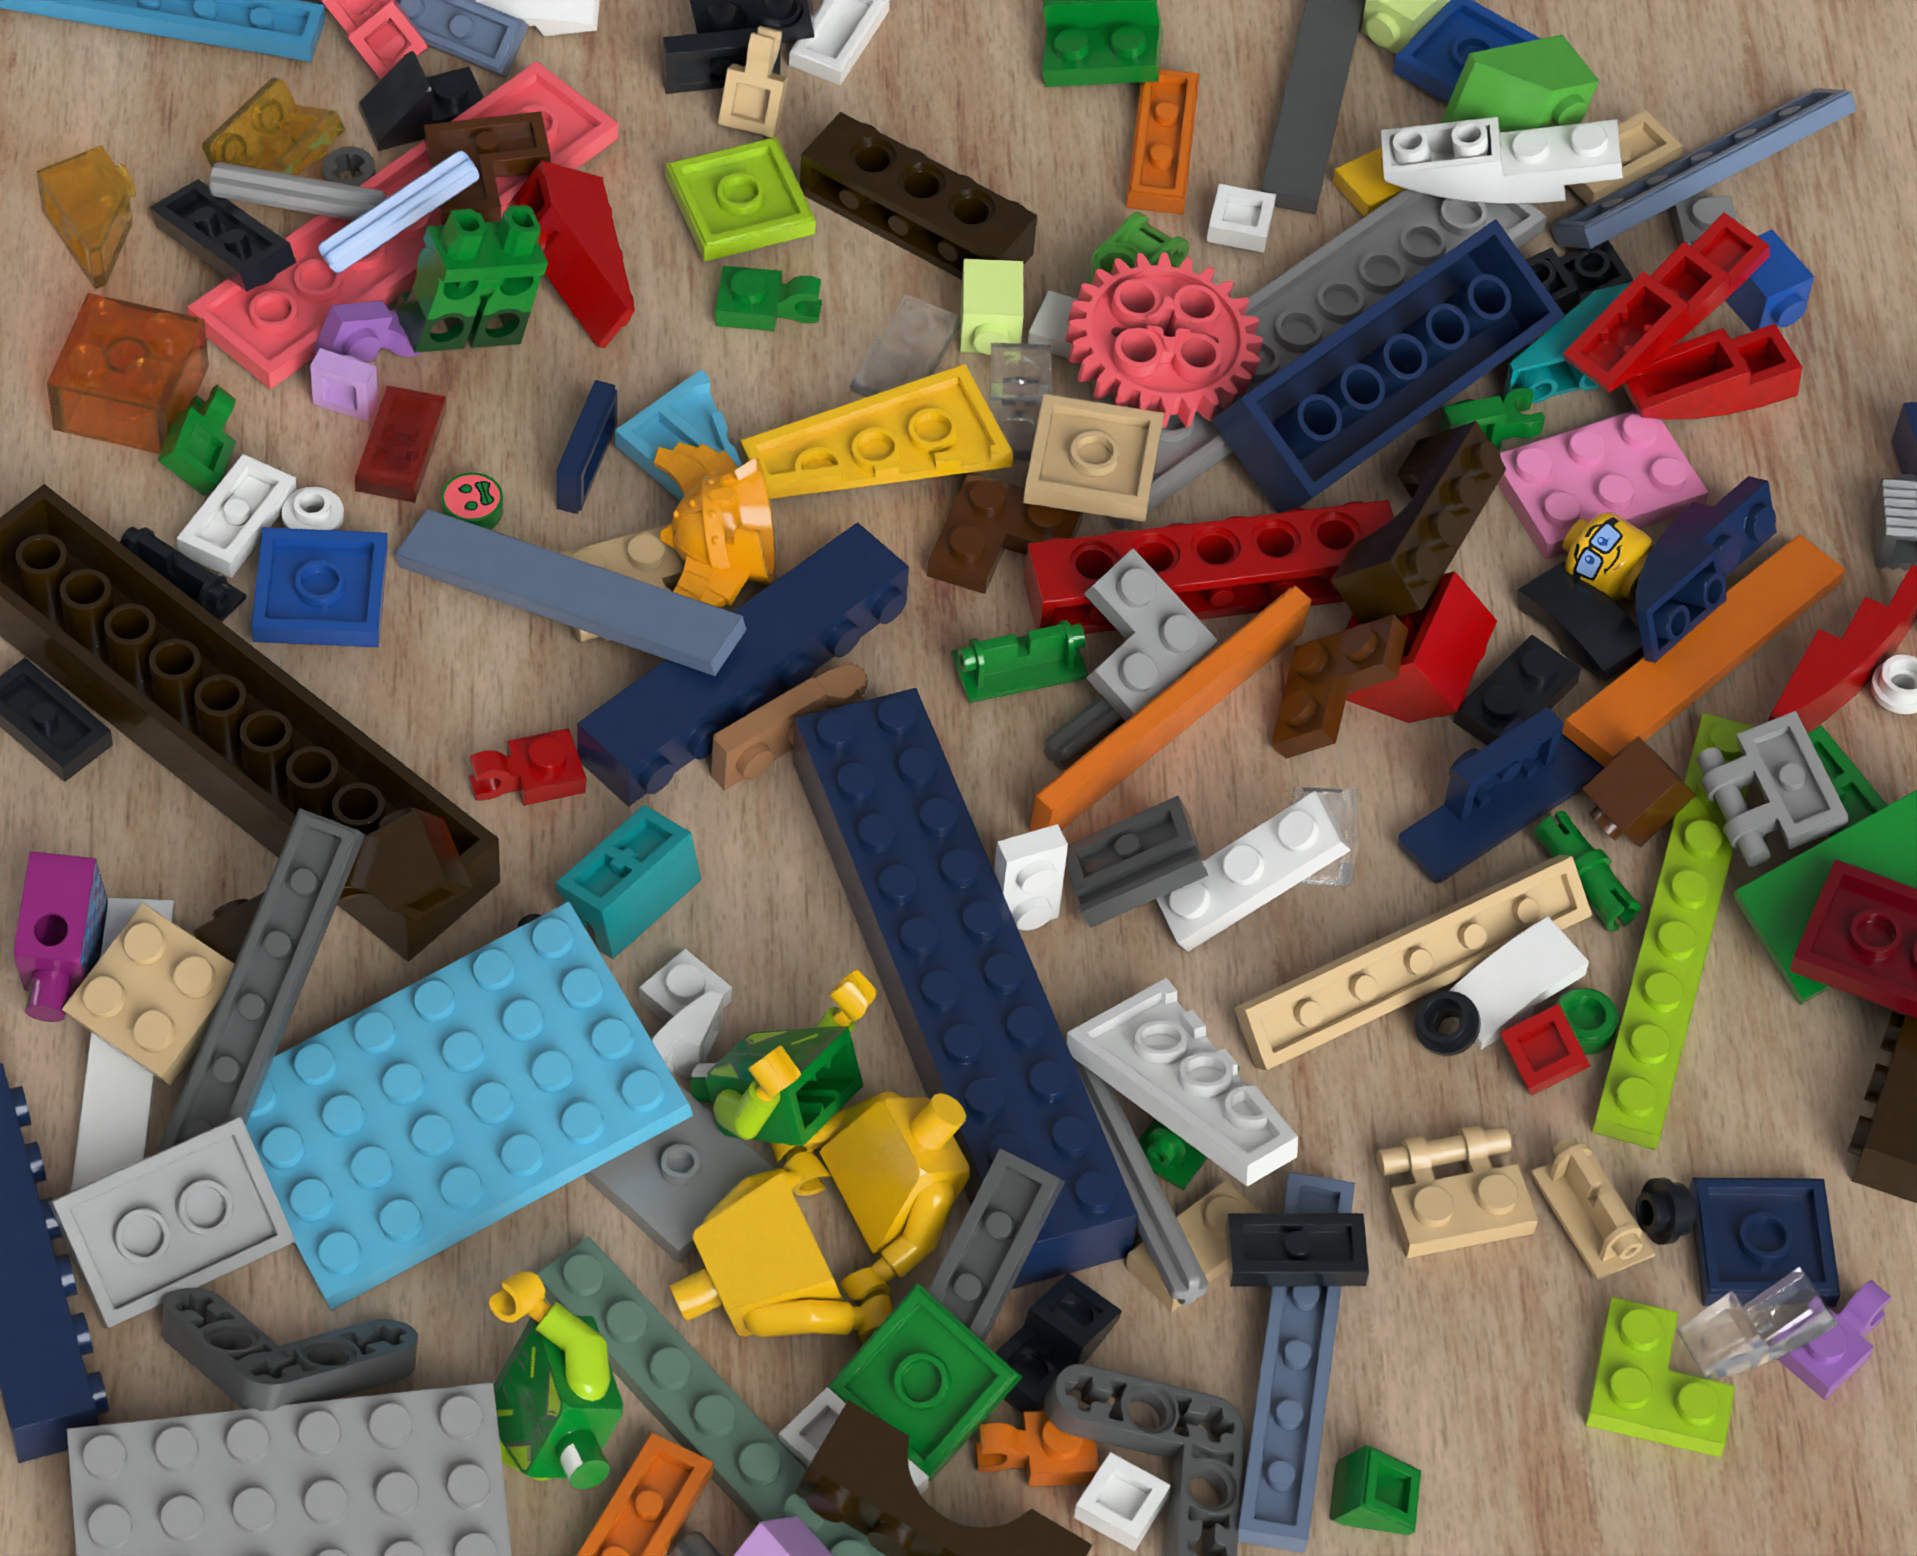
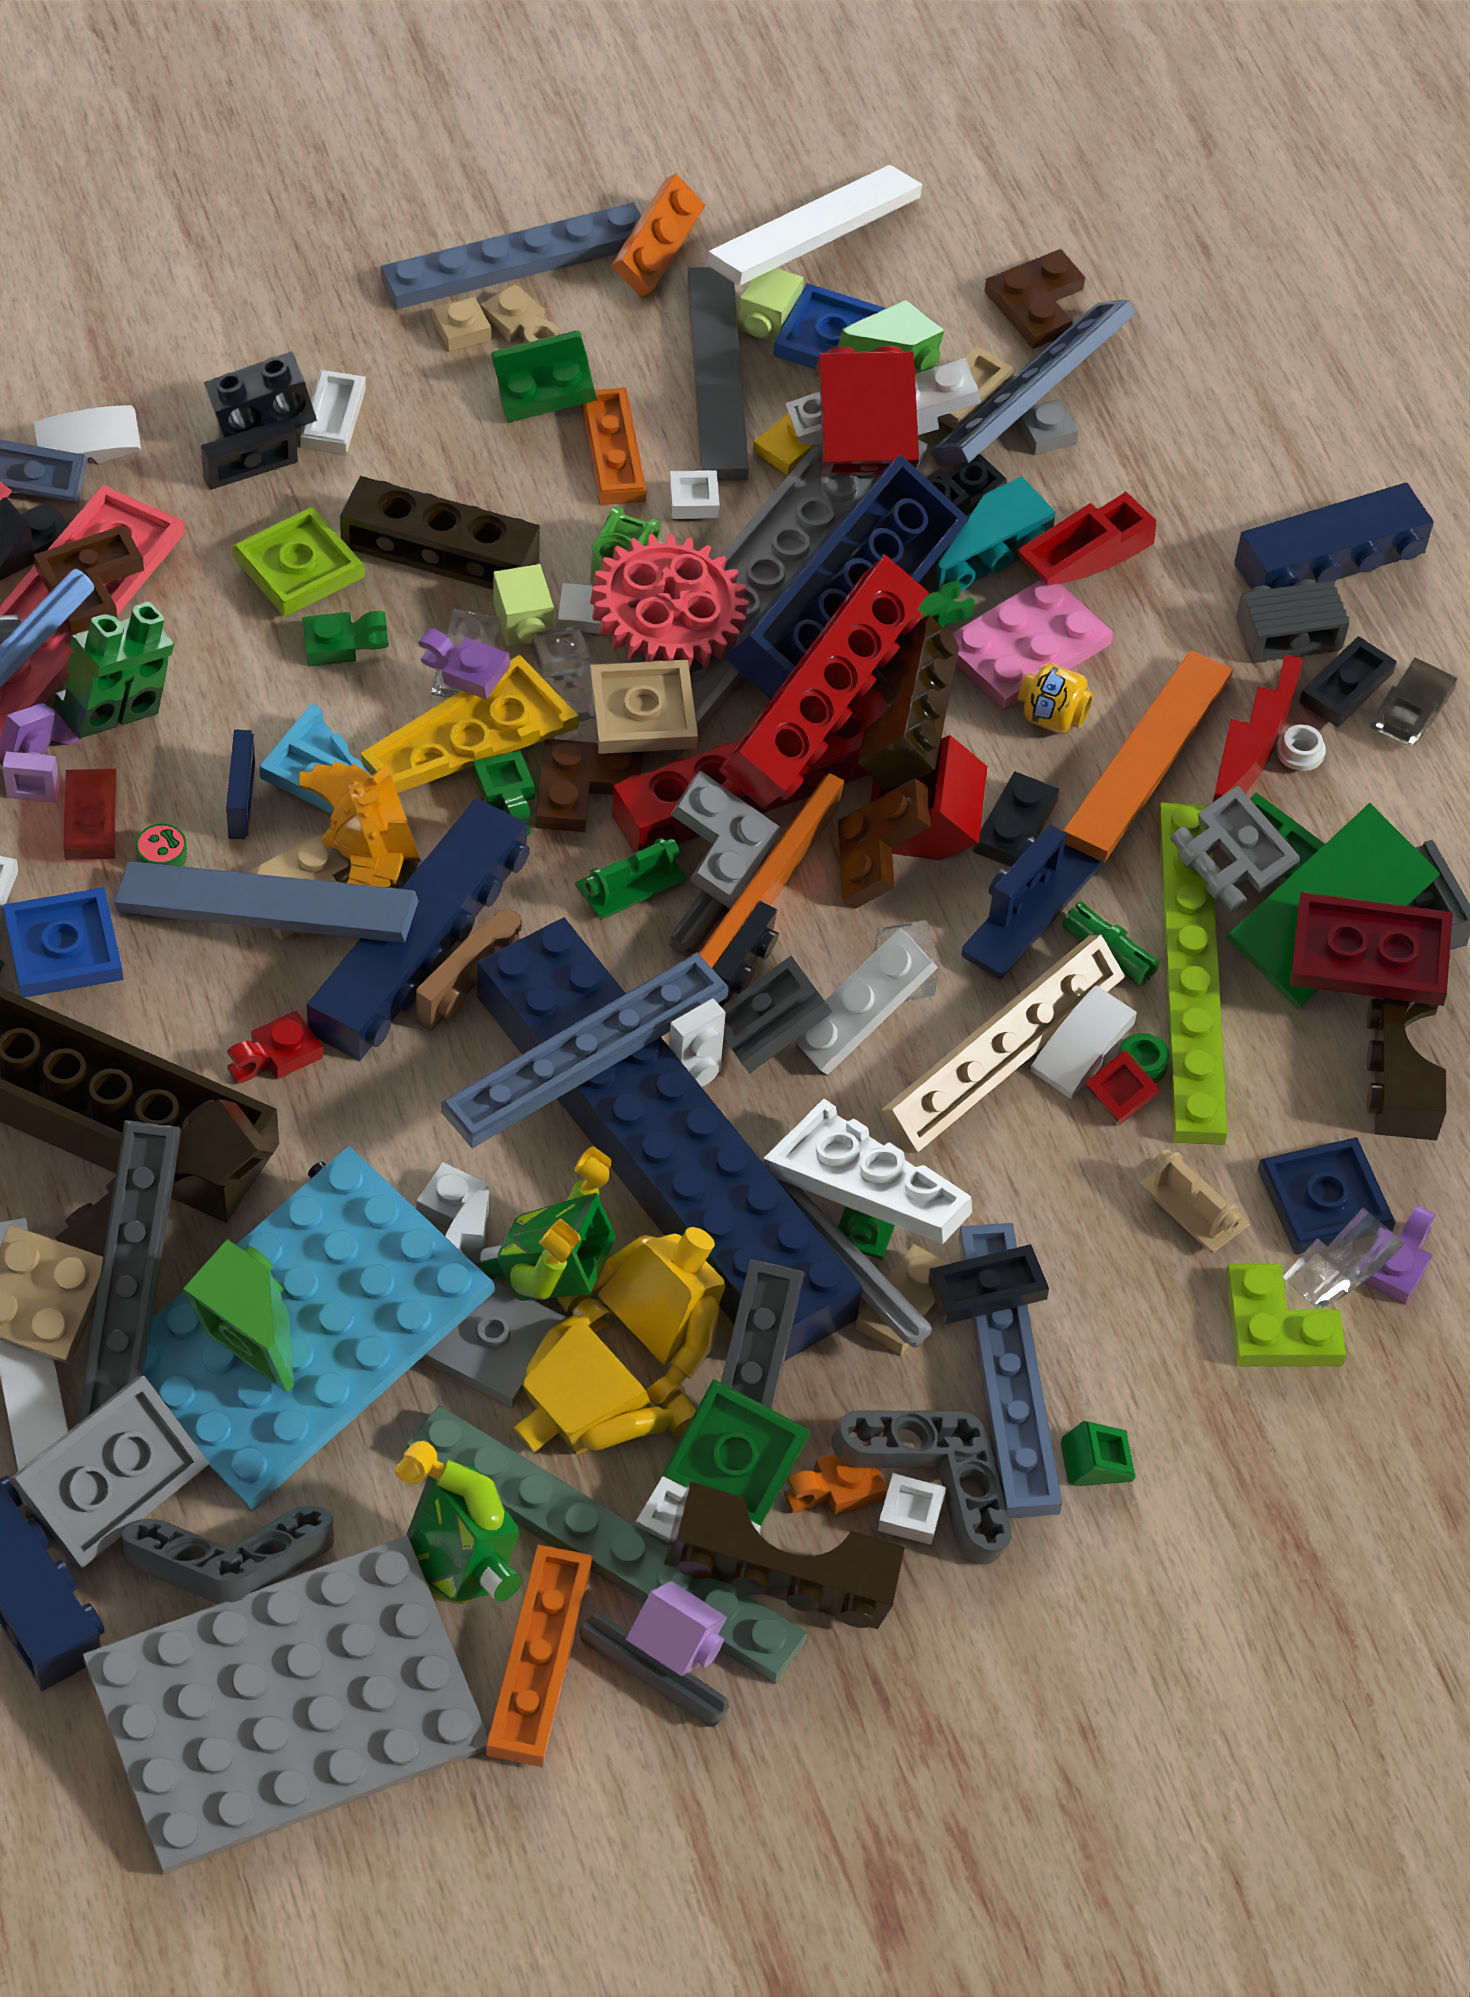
camera: 15 degrees left, 0 degrees up
(325, 504) = (33, 873): white plate -> none
(380, 1067) = (244, 1310): none -> bright green slope
(580, 247) = (198, 637): red slope -> none
(631, 879) = (385, 1115): teal hinge -> none
(752, 93) = (284, 474): tan plate -> none
(882, 852) = (581, 1051): none -> sand blue tile
(897, 366) = (470, 667): none -> medium lavender plate
(905, 515) = (506, 784): none -> green plate
(1056, 1334) = (823, 1396): black slope -> none
(1113, 791) = (752, 941): none -> black plate
(1204, 553) = (756, 762): none -> red brick
(1435, 1011) = (1039, 1070): black plate -> none
(1461, 1208) = (1092, 1225): tan plate -> none
(1474, 157) = (866, 410): none -> red panel
(1590, 623) = (1057, 753): black slope -> none
(1637, 794) = (1133, 875): reddish brown brick -> none
(1665, 1210) = (1248, 1188): black plate -> none
(1667, 304) = (1044, 492): red slope -> none
(1691, 559) = (1120, 687): dark blue slope -> none
(1735, 58) = (1030, 295): none -> reddish brown plate
(1775, 291) = (1107, 461): blue brick -> none

